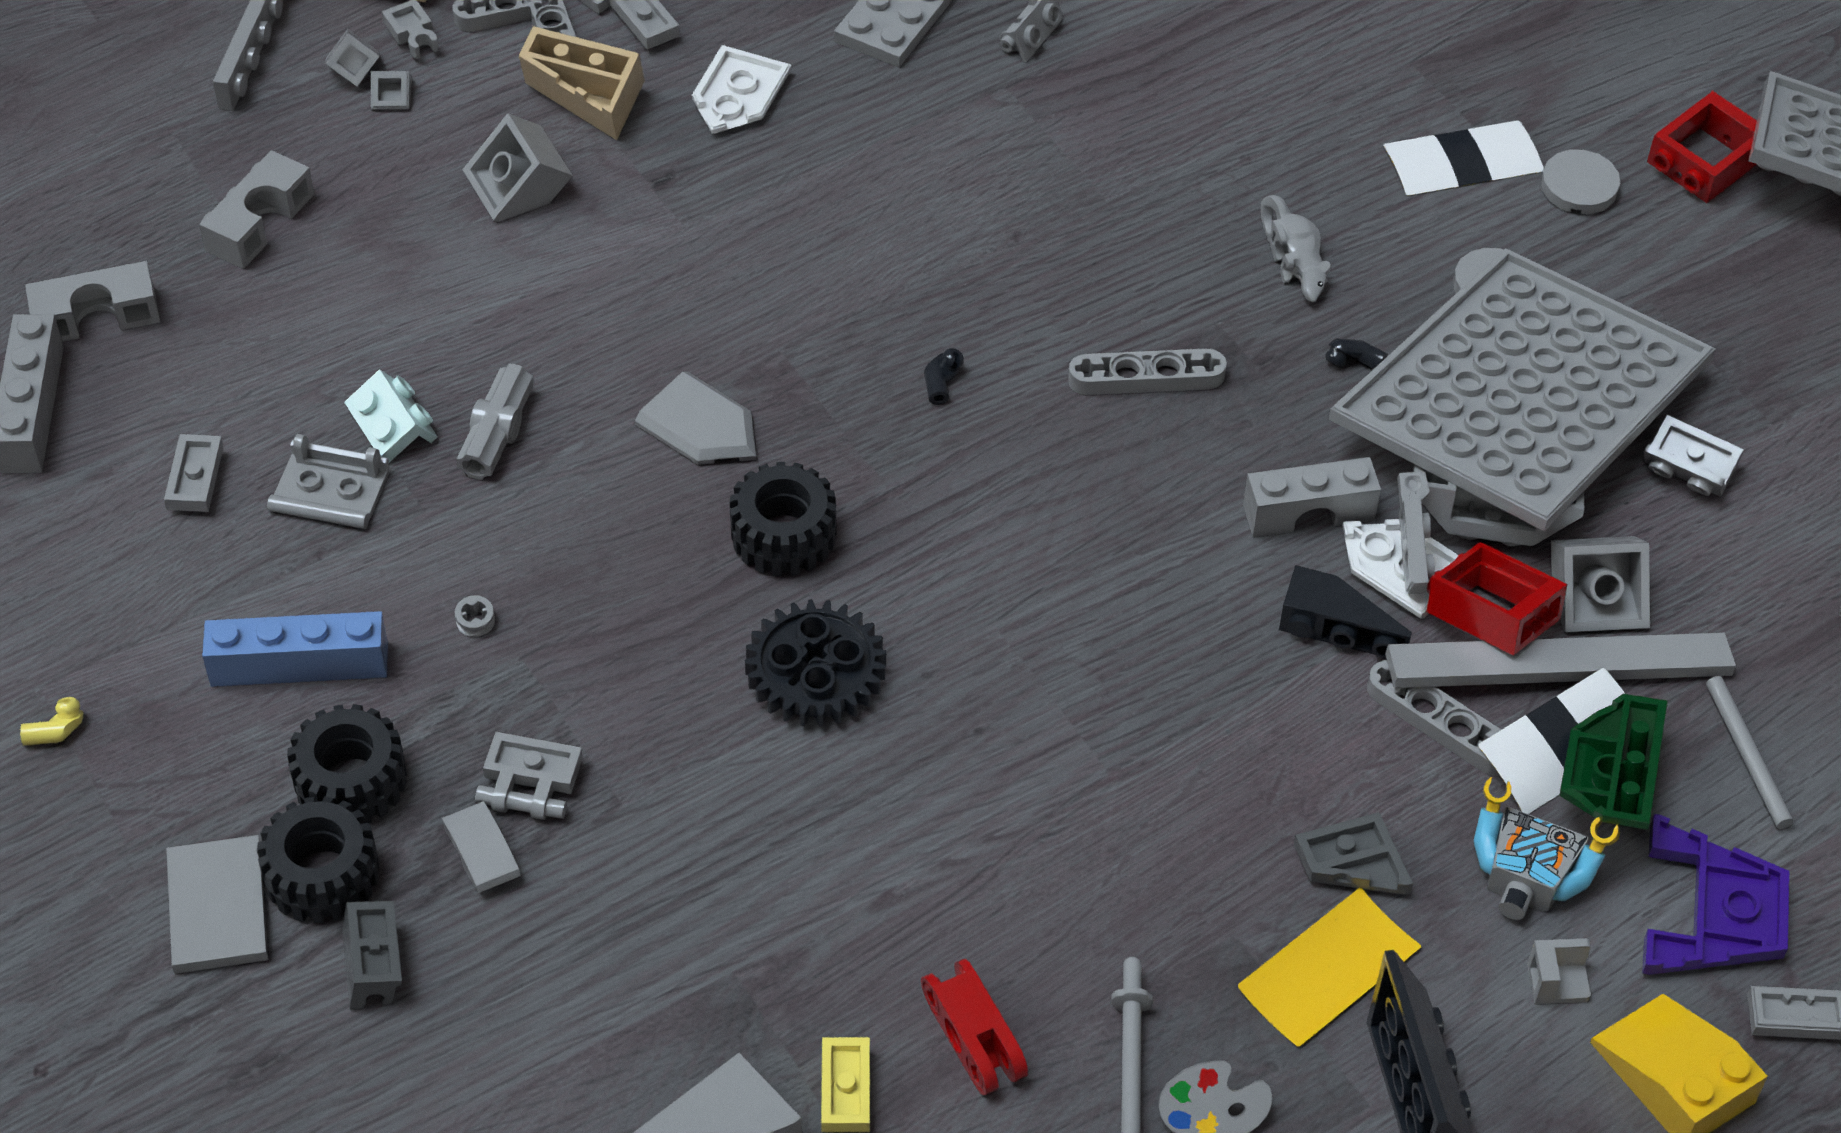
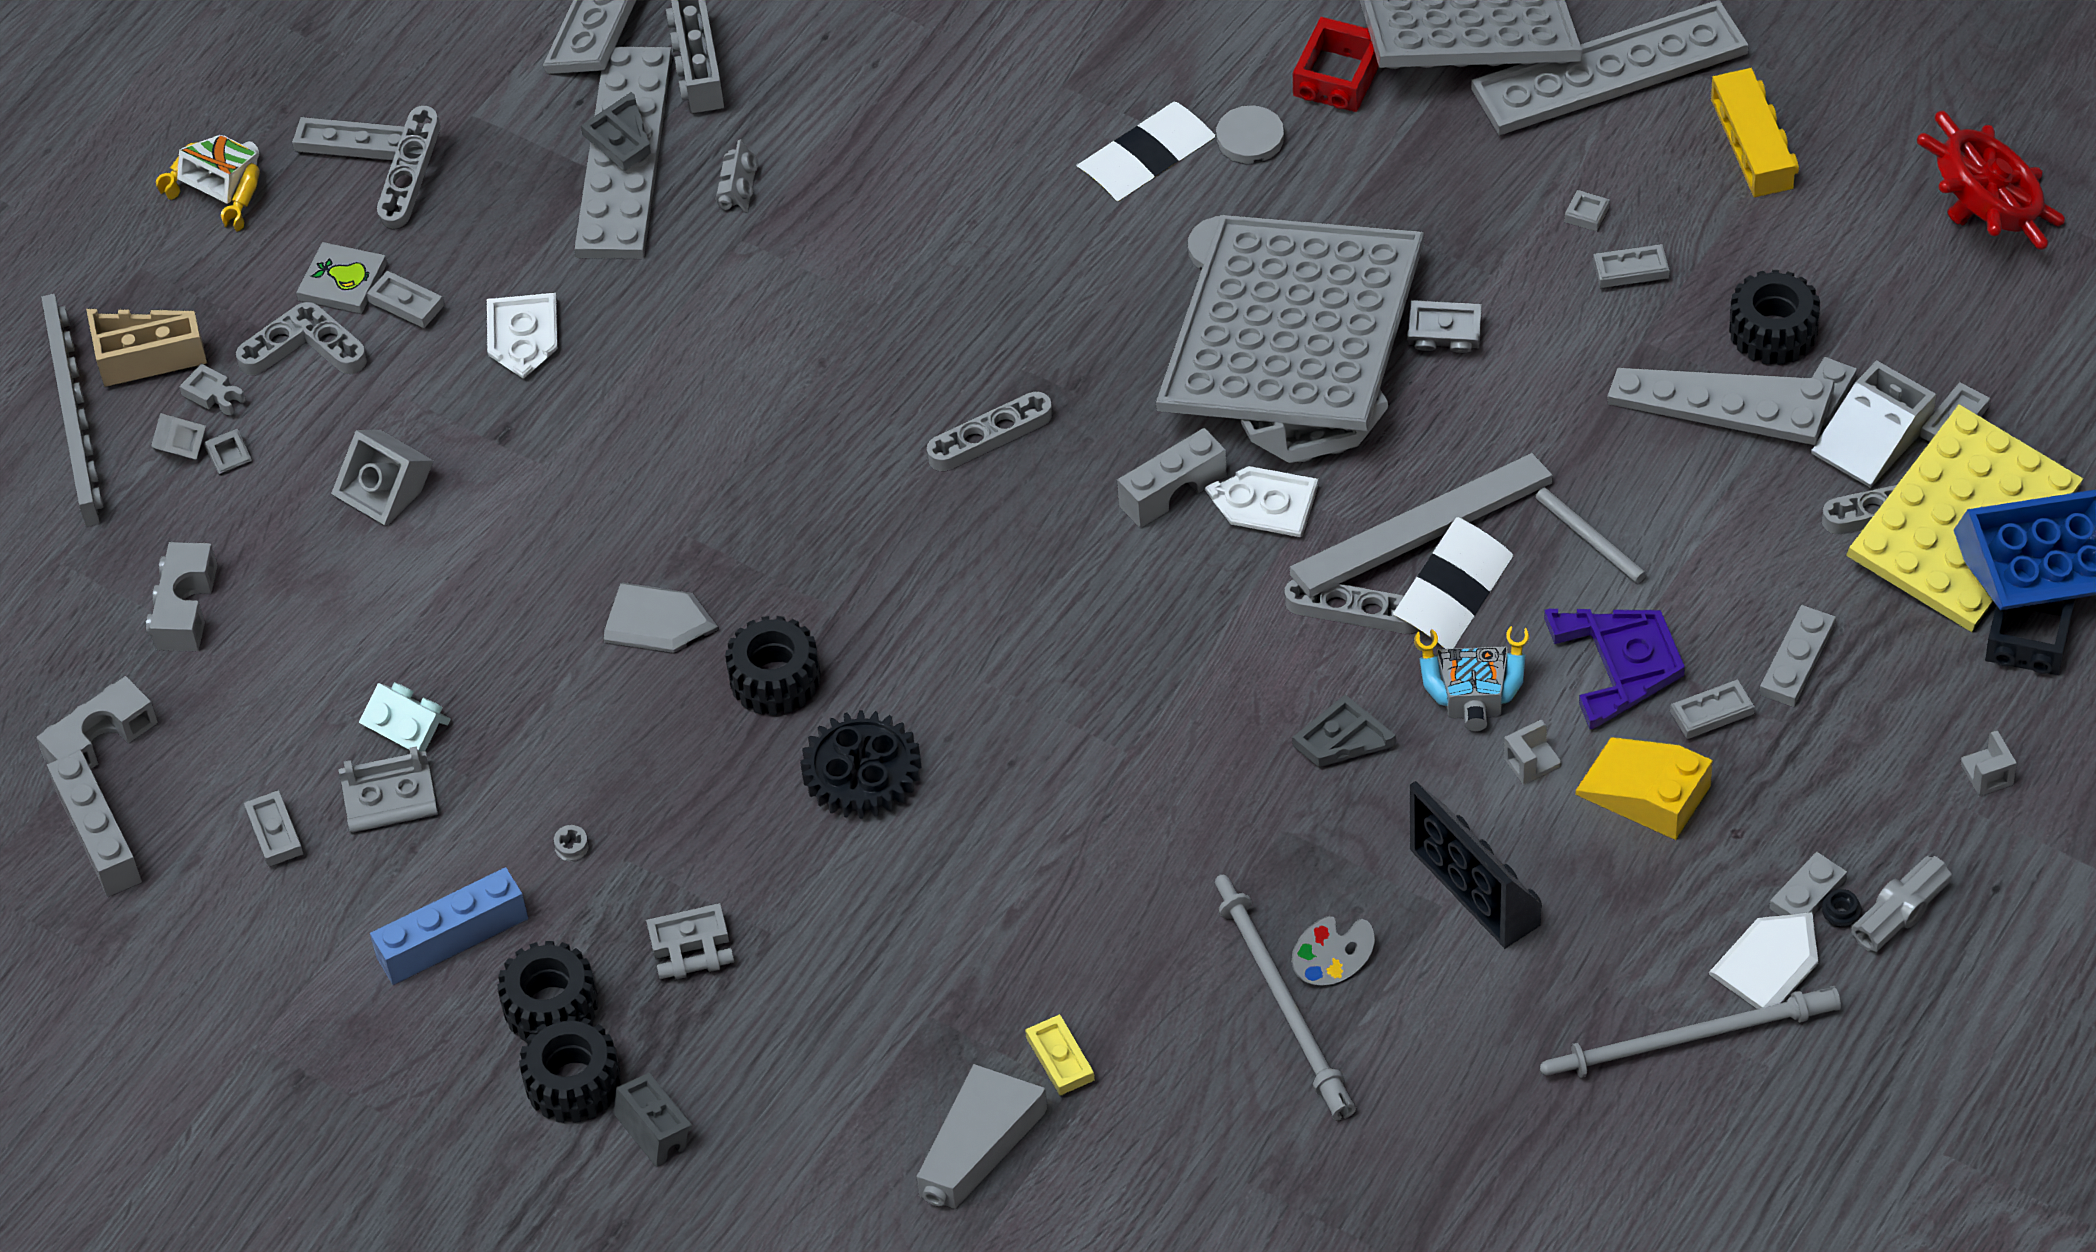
camera: 20 degrees left, 0 degrees up
(57, 728) = (294, 1066): light yellow arm -> none
(216, 904) = (507, 1137): light grey tile -> none
(481, 847) = (686, 1007): light grey slope -> none
(495, 421) = (493, 686): light grey piece -> none
(583, 77) = (390, 374): tan wedge -> none
(940, 372) = (826, 499): black arm -> none
(974, 1027) = (1131, 974): red piece -> none
(1297, 245) = (1055, 278): light grey animal -> none
(1326, 968) = (1362, 823): yellow sticker -> none
(1336, 613) = (1236, 559): black slope -> none
(1356, 349) = (1145, 345): black arm -> none
(1413, 530) = (1267, 472): light grey hinge -> none
(1536, 595) = (1377, 480): red window -> none
(1605, 582) = (1423, 452): light grey slope -> none
(1616, 761) = (1500, 582): dark green wedge -> none

